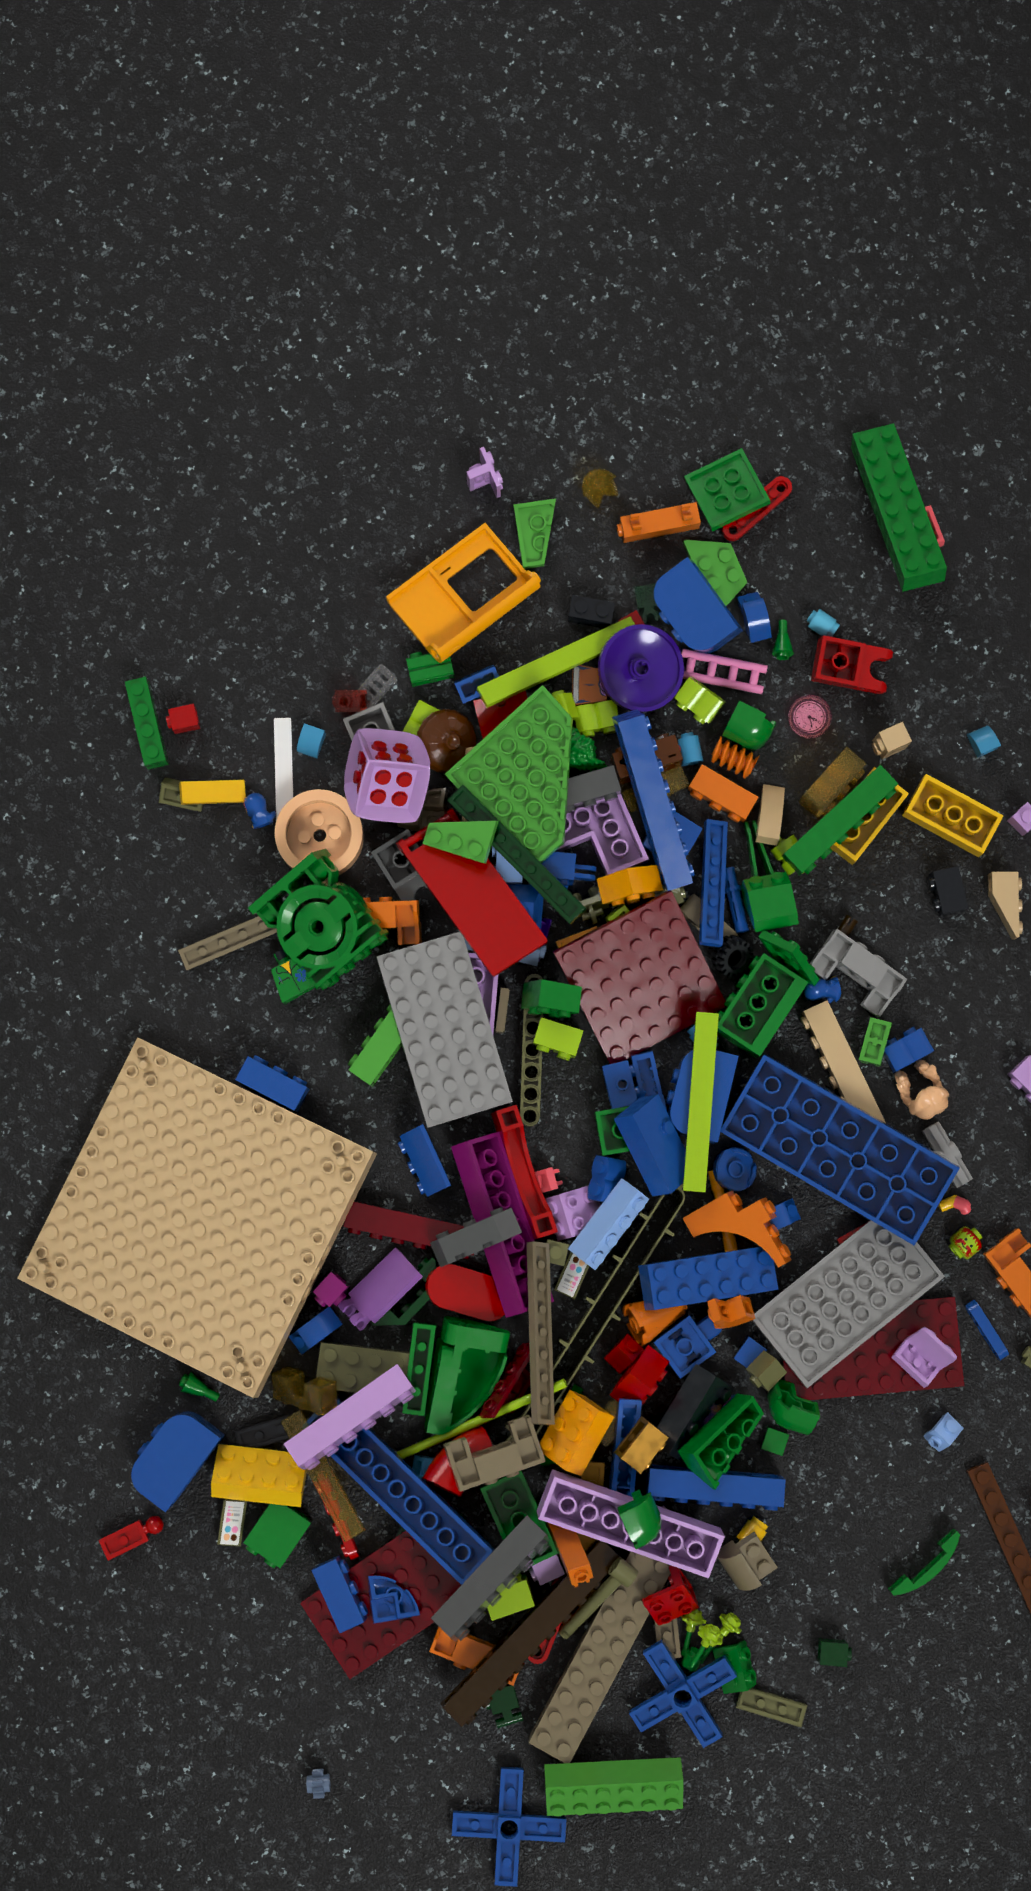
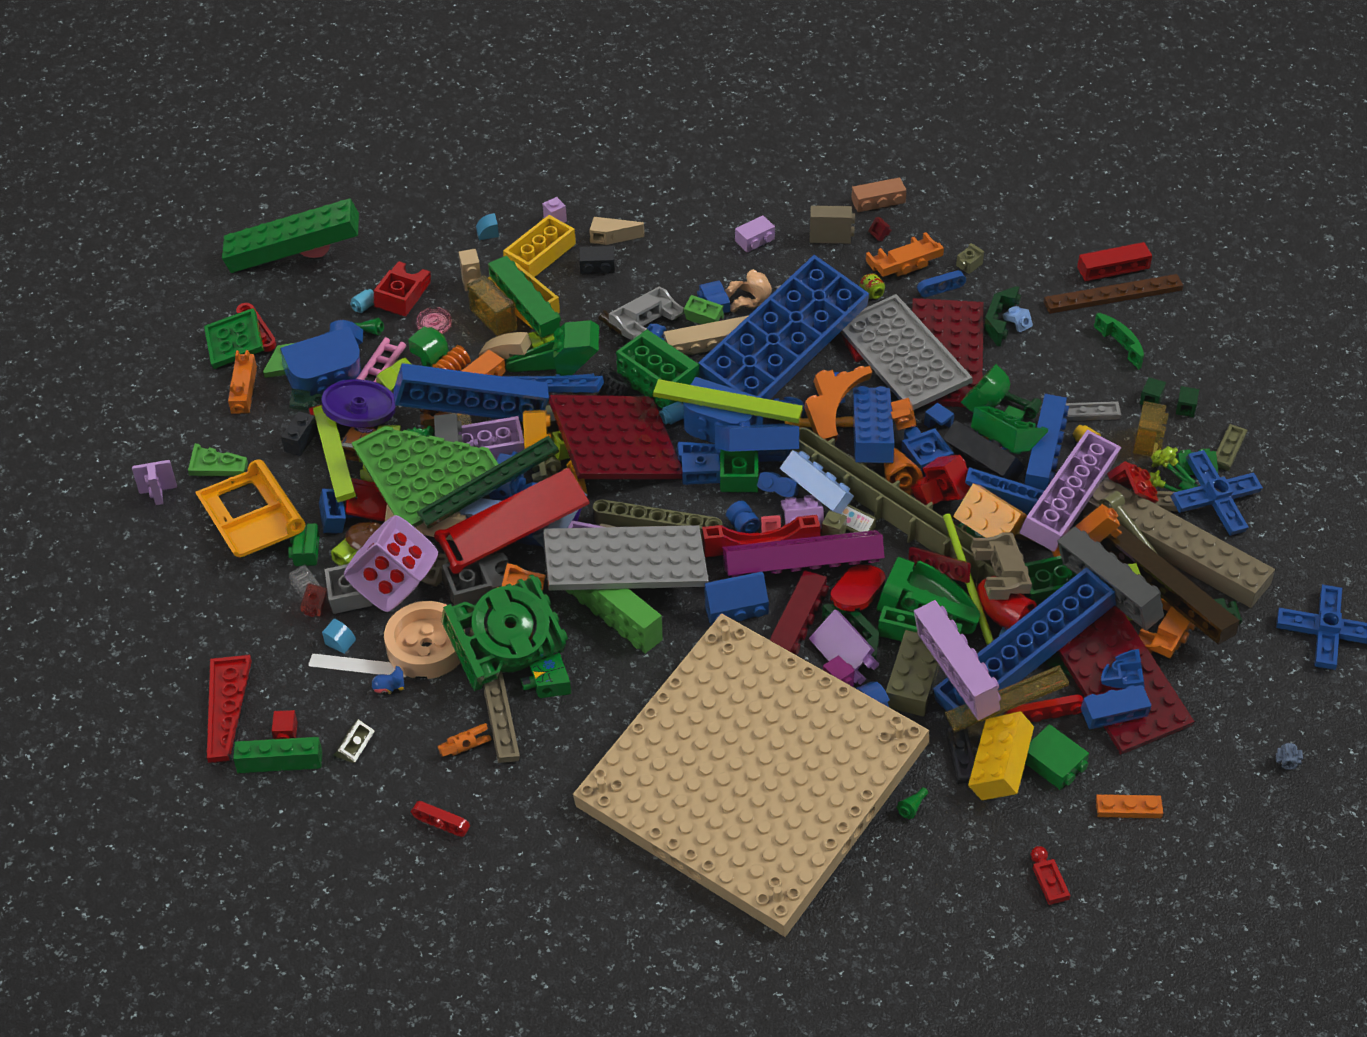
camera: 75 degrees left, 35 degrees down
(99, 908) = (440, 818): none -> red beam
(173, 1457) = (978, 821): blue brick -> none
(197, 908) = (455, 743): none -> orange hinge
(212, 792) = (360, 711): yellow tile -> none
(219, 645) = (226, 696): none -> red wing
(232, 1522) = (1042, 795): slope -> none
(233, 1614) = (1129, 806): none -> orange plate
(273, 1083) = (638, 694): blue brick -> none
(315, 1395) = (936, 690): clear yellow arch -> none
(464, 839) = (463, 516): bright green wing -> none
(475, 1236) = (811, 558): dark grey brick -> none
(540, 1333) = (893, 526): dark tan plate -> none
(549, 1147) = (743, 518): none -> blue wheel
(551, 998) = (617, 484): green brick -> none
(557, 1037) = (653, 491): lime brick -> none
(595, 489) = (194, 415): clear yellow piece -> none
(614, 1786) = (1294, 544): bright green brick -> none
(641, 1445) = (1005, 470): pearl gold brick -> none
(641, 1519) = (1069, 460): green brick -> none
(746, 1562) = (1113, 433): dark tan brick -> none
(765, 1371) = (954, 401): olive brick -> none
(768, 1610) = (1151, 429): none -> clear yellow brick
(789, 955) = (619, 334): green plate -> none
(793, 1462) = (1030, 407): none -> dark green brick
(801, 1536) = (1093, 411): none -> light grey tile
(840, 1609) = (1153, 391): none -> dark green brick
(914, 1409) = (1002, 300): none -> dark green slope
(923, 1356) = (954, 308): lavender bracket -> none

